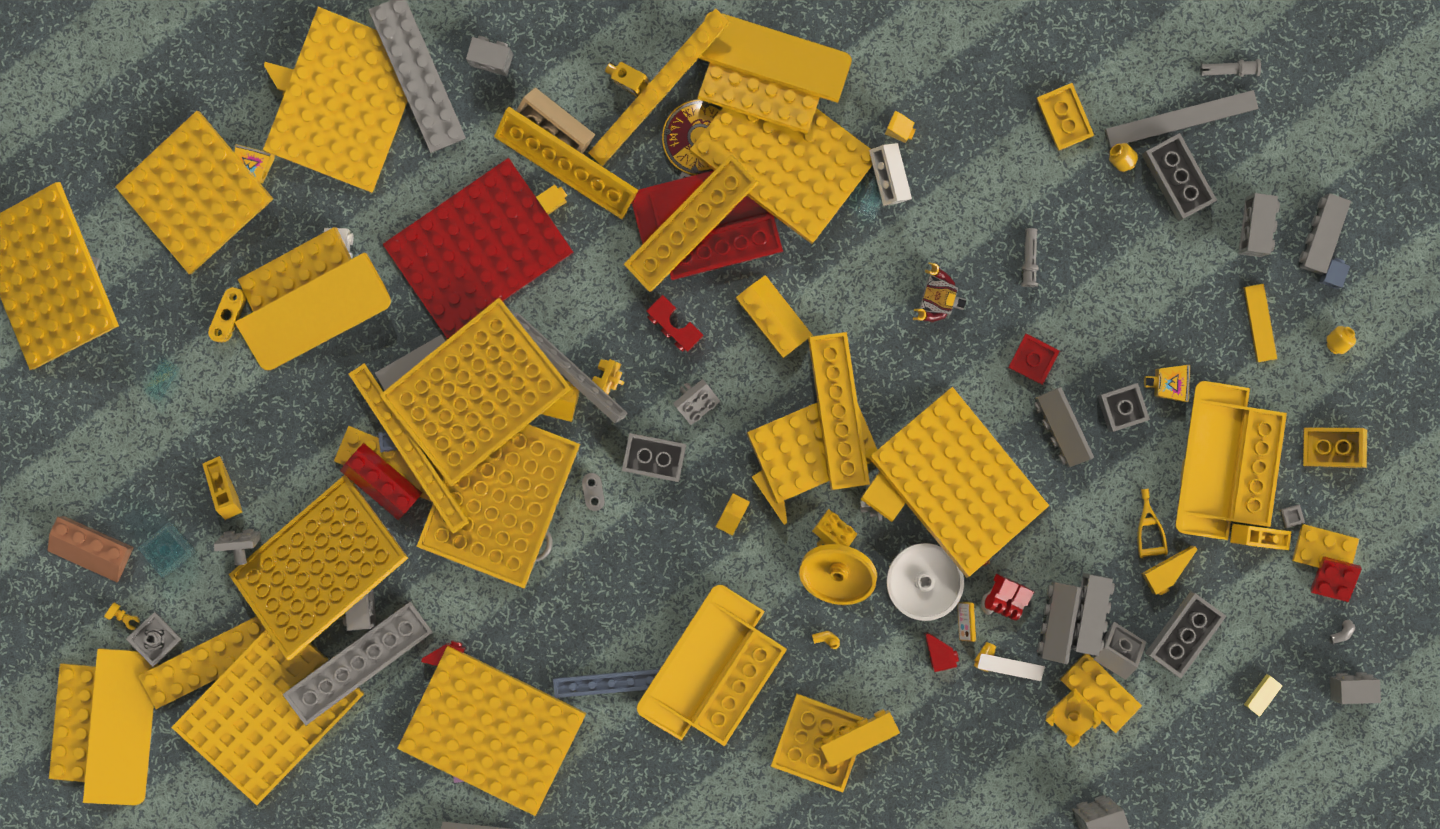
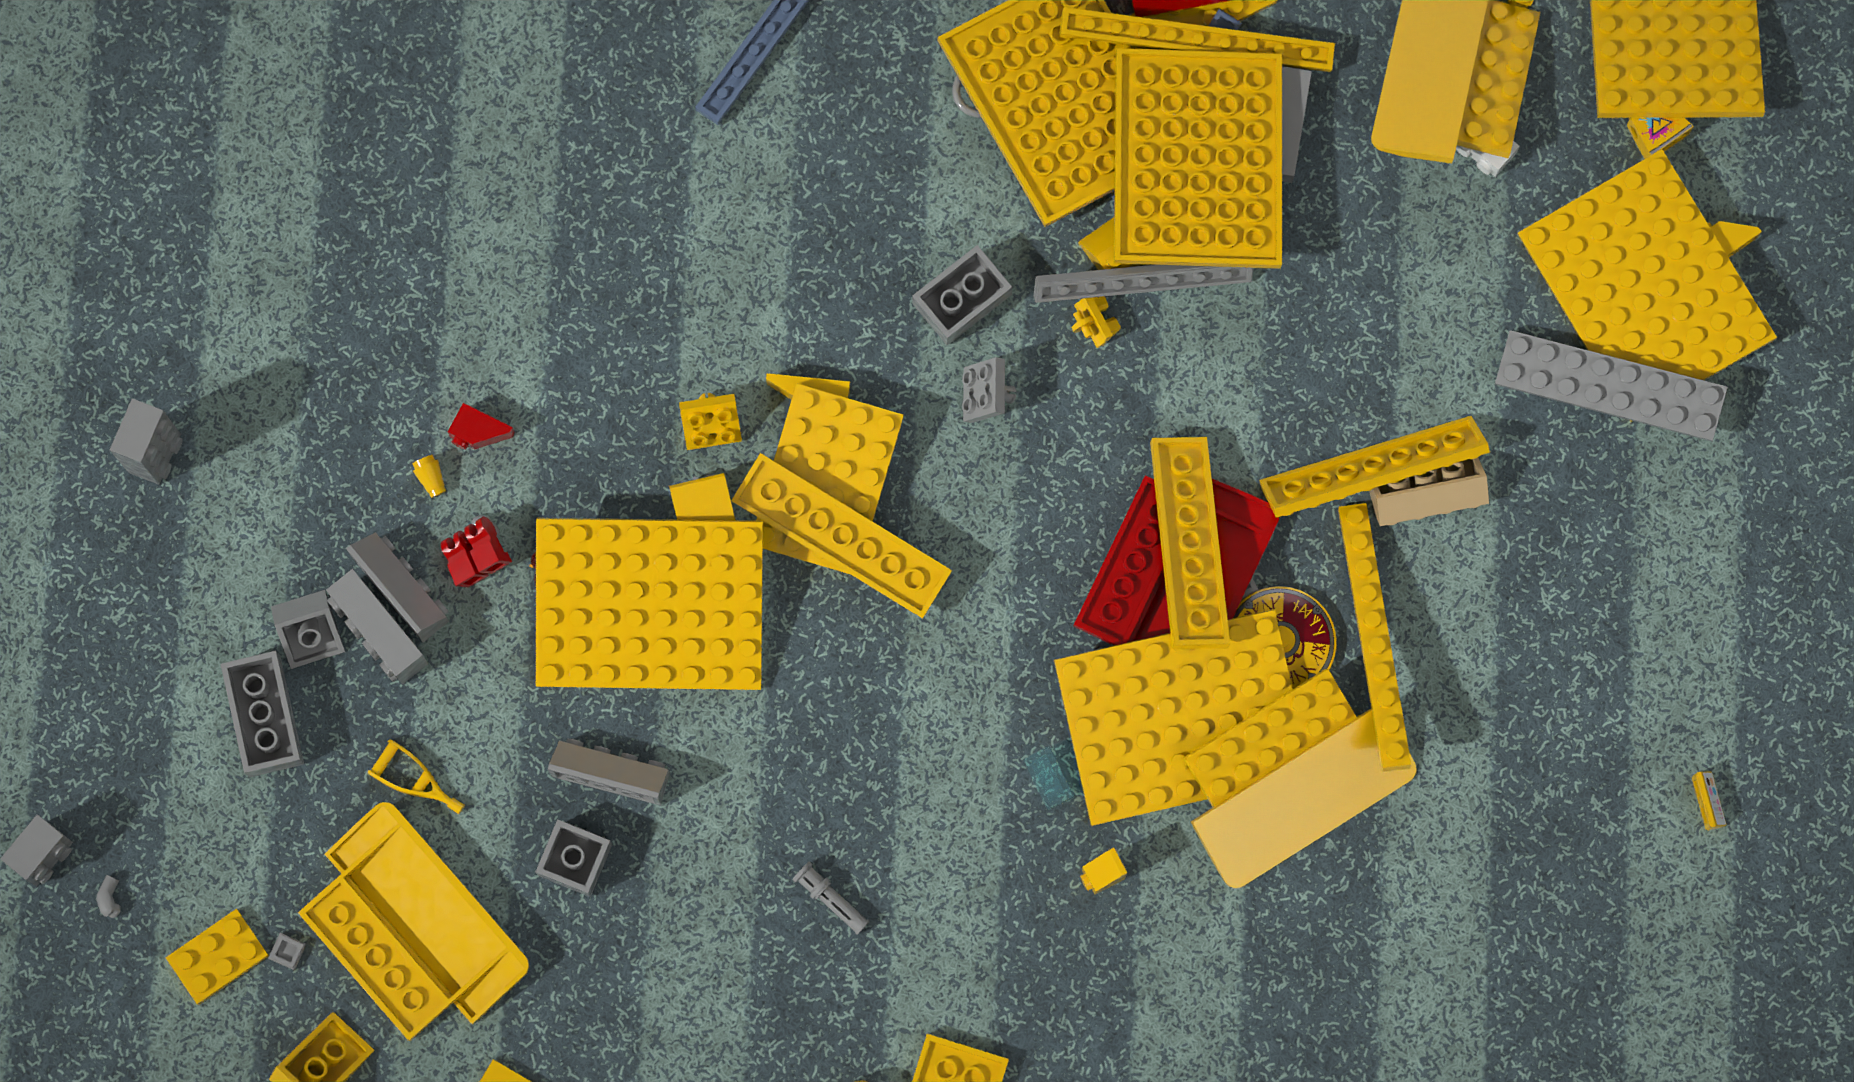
camera: 130 degrees right, 10 degrees down
(478, 247) = (1359, 298): red plate -> none
(489, 56) = (1565, 479): light grey brick -> none
(552, 198) = (1346, 420): yellow brick -> none
(593, 492) = (979, 202): light grey plate -> none
(627, 78) = (1414, 613): yellow torso -> none
(685, 337) = (1115, 434): red arch -> none
(712, 670) = (674, 169): yellow slope -> none
(732, 514) = (827, 332): yellow slope -> none
(773, 316) = (1008, 555): yellow slope -> none
(801, 738) = (494, 219): yellow plate -> none
(827, 637) = (600, 323): yellow arm -> none
(838, 574) = (661, 383): yellow dish -> none
(859, 738) = (463, 261): yellow brick -> none
(890, 174) = (1059, 817): white brick -> none
(924, 582) = (570, 472): white dish -> none
(938, 296) = (874, 756): torso -> none
(966, 621) = (487, 488): slope -> none
(1011, 667) = (394, 493): white sticker -> none
(1033, 359) = (714, 806): red plate -> none
(1074, 716) = (280, 516): yellow panel -> none
(1101, 692) = (279, 570): yellow plate -> none
(1167, 572) = (348, 750): yellow slope -> none
(1170, 383) = (555, 937): yellow torso -> none
(1260, 537) = (295, 893): yellow slope -> none
(1263, 695) = (118, 748): light yellow slope -> none
(1336, 579) = (175, 937): red plate -> none

